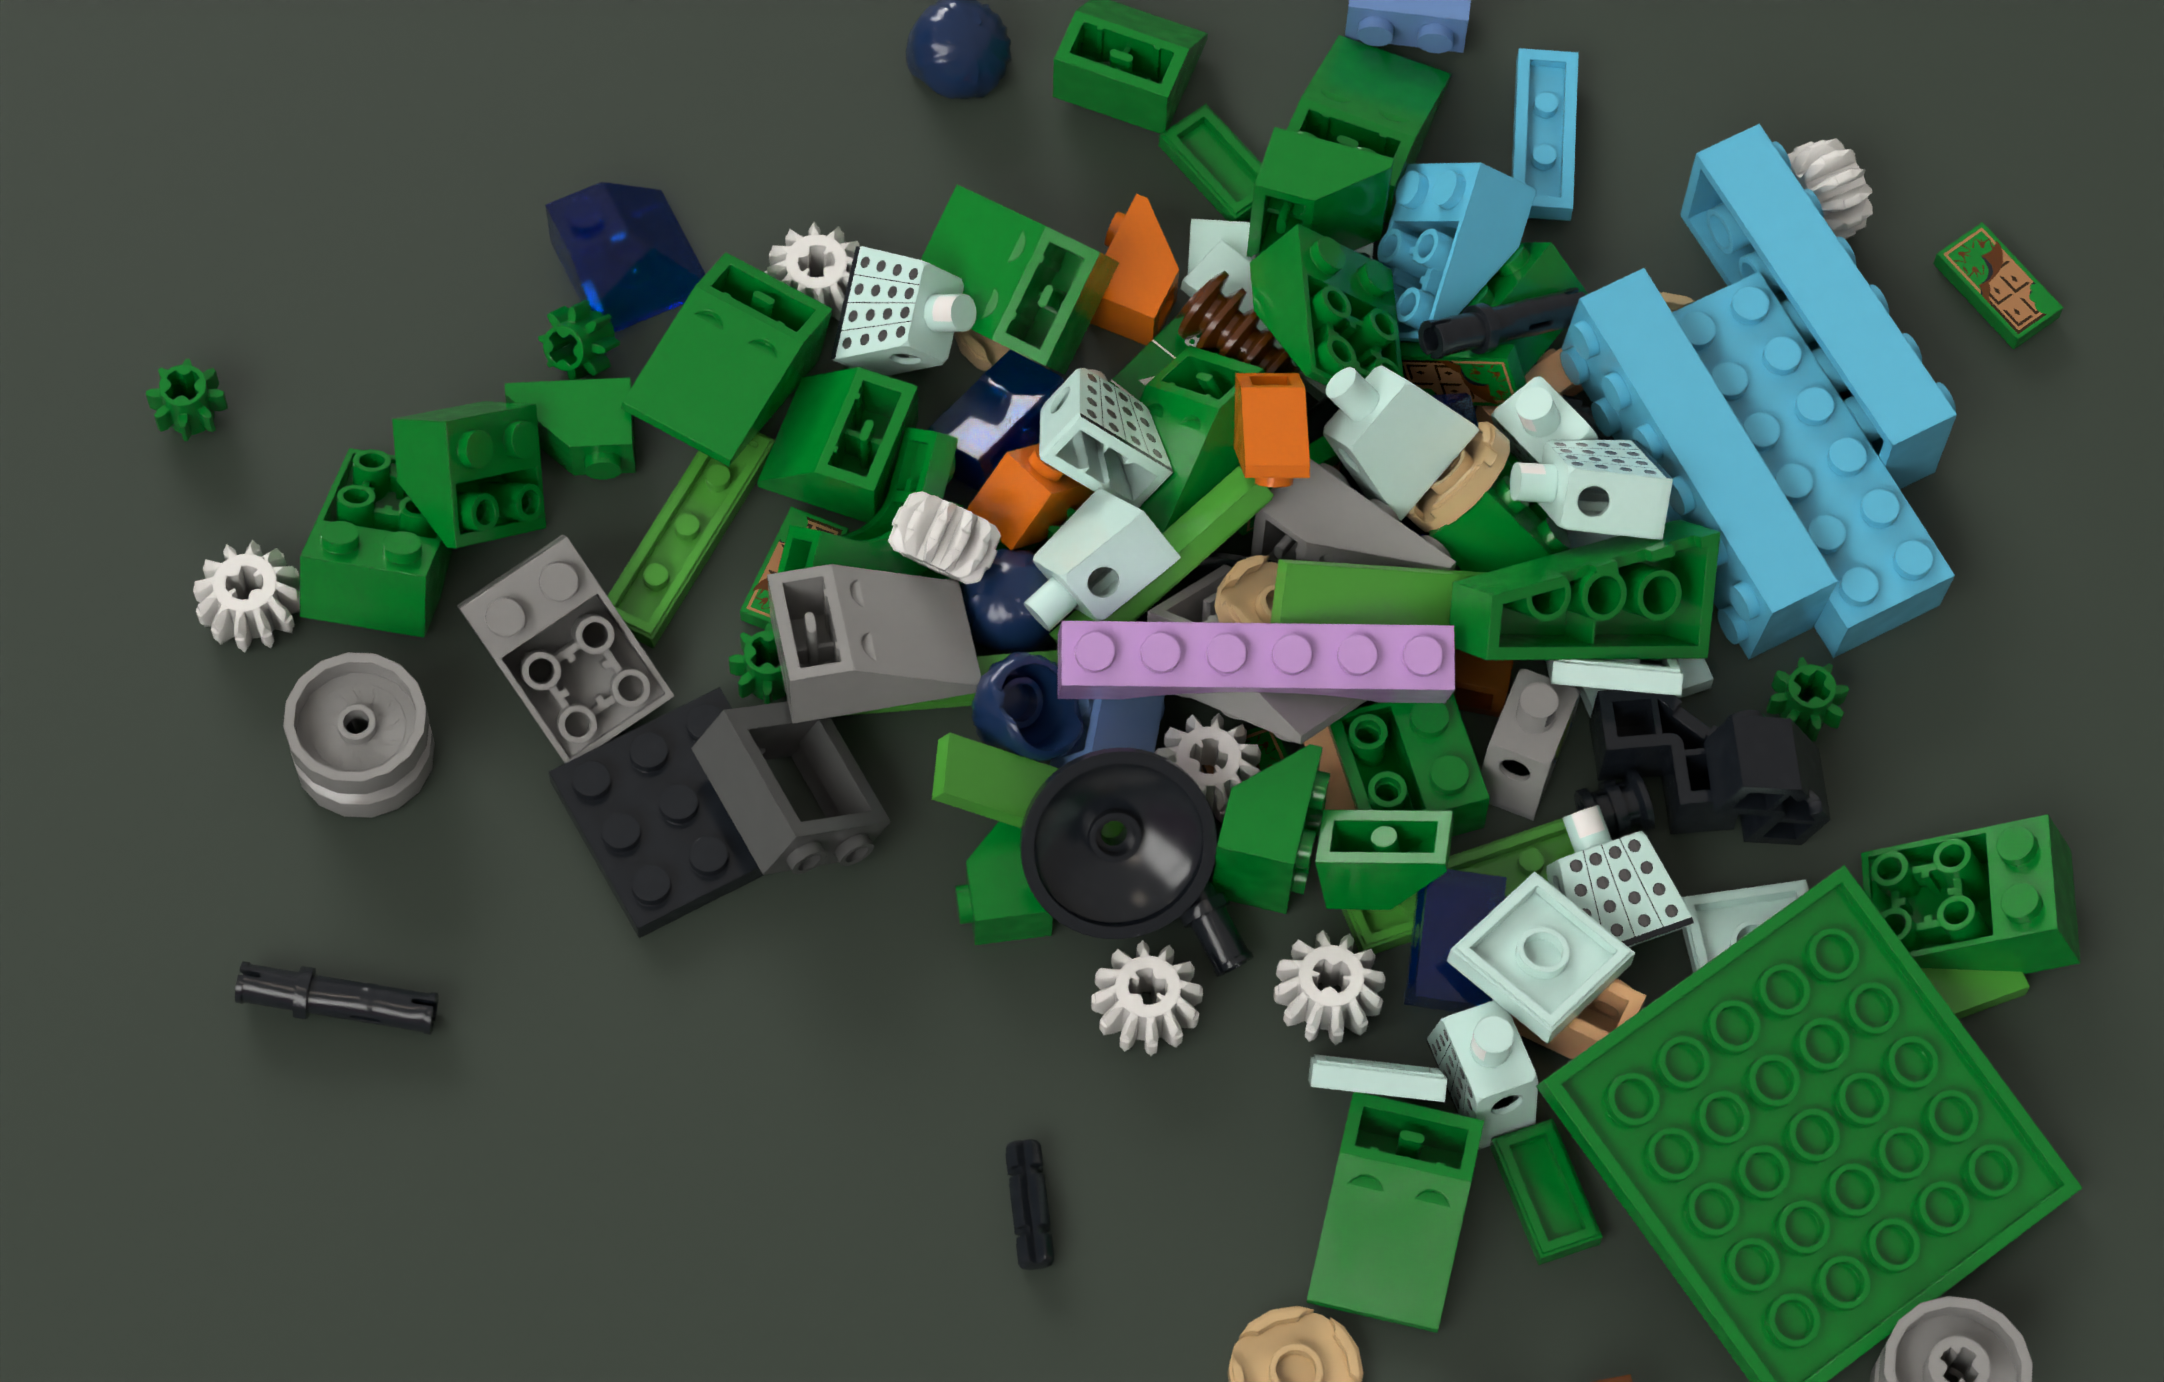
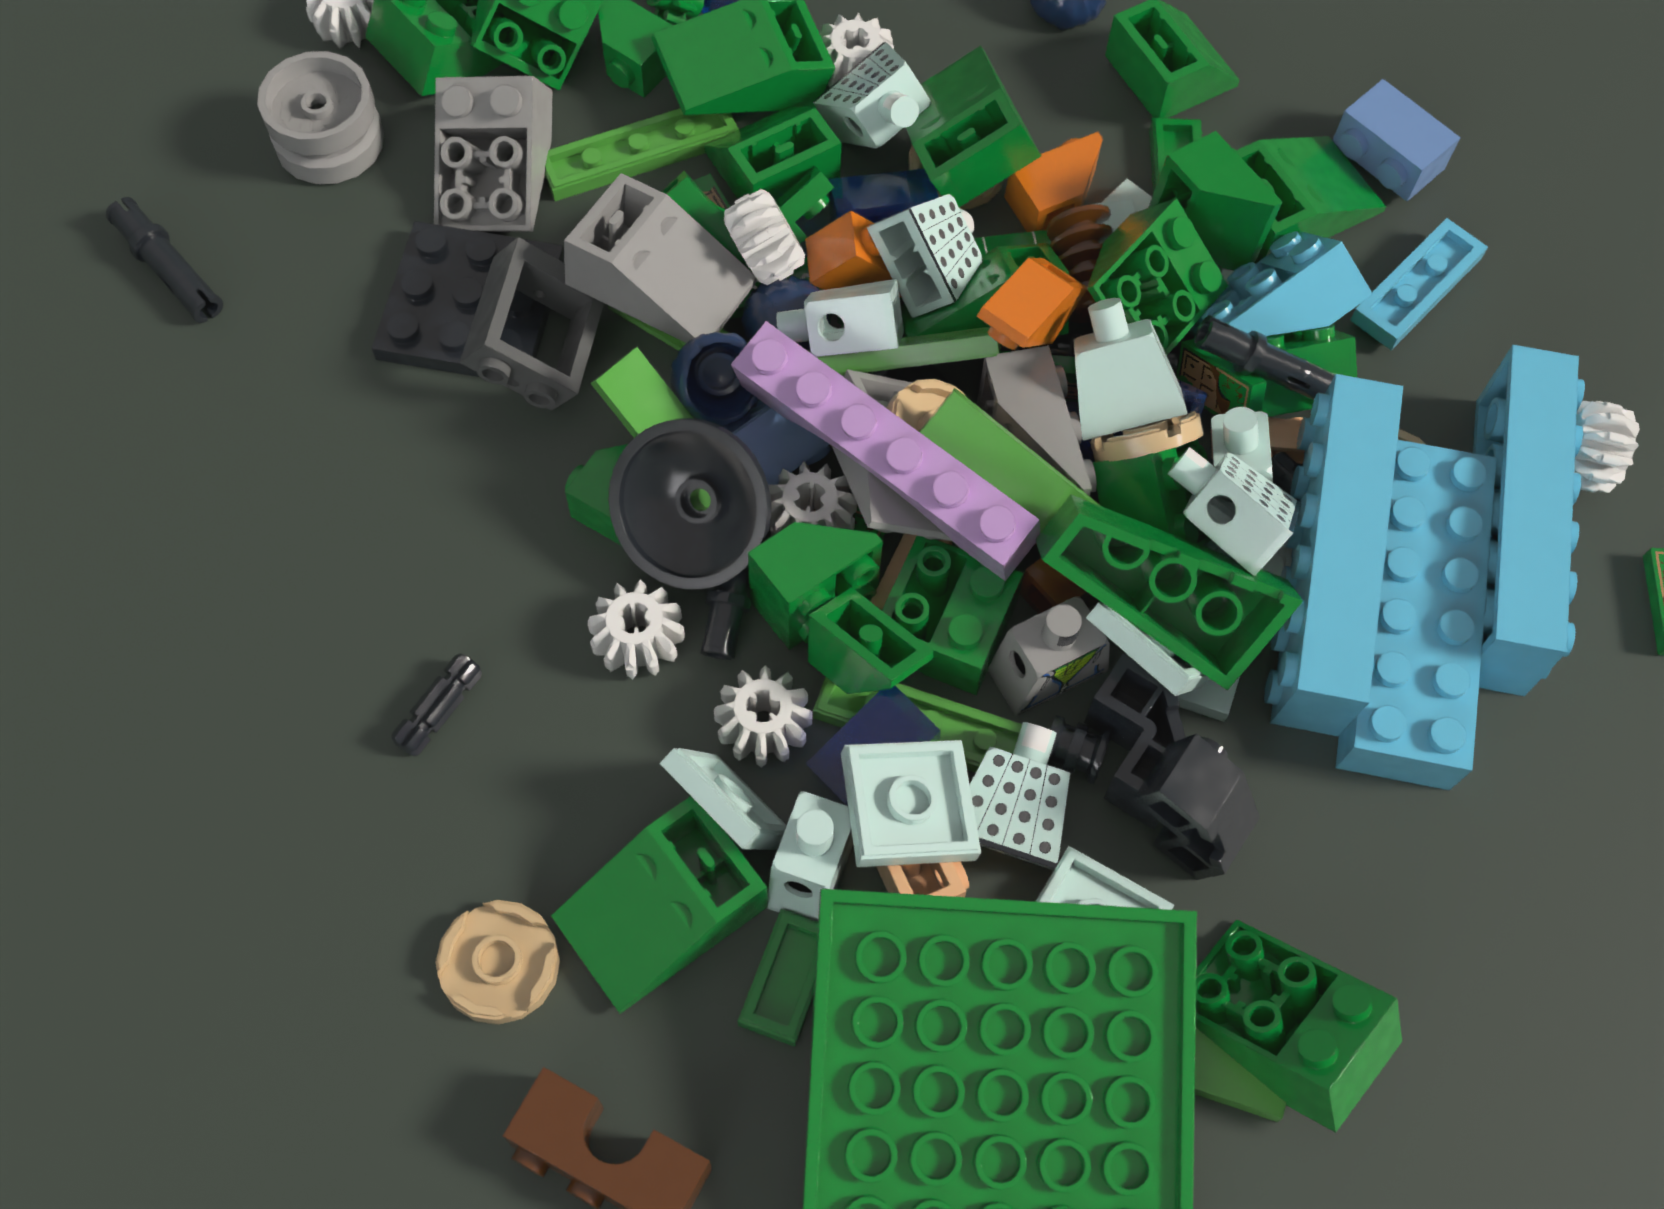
camera: 40 degrees right, 0 degrees up
(1810, 682) = (1280, 792): green gear -> none

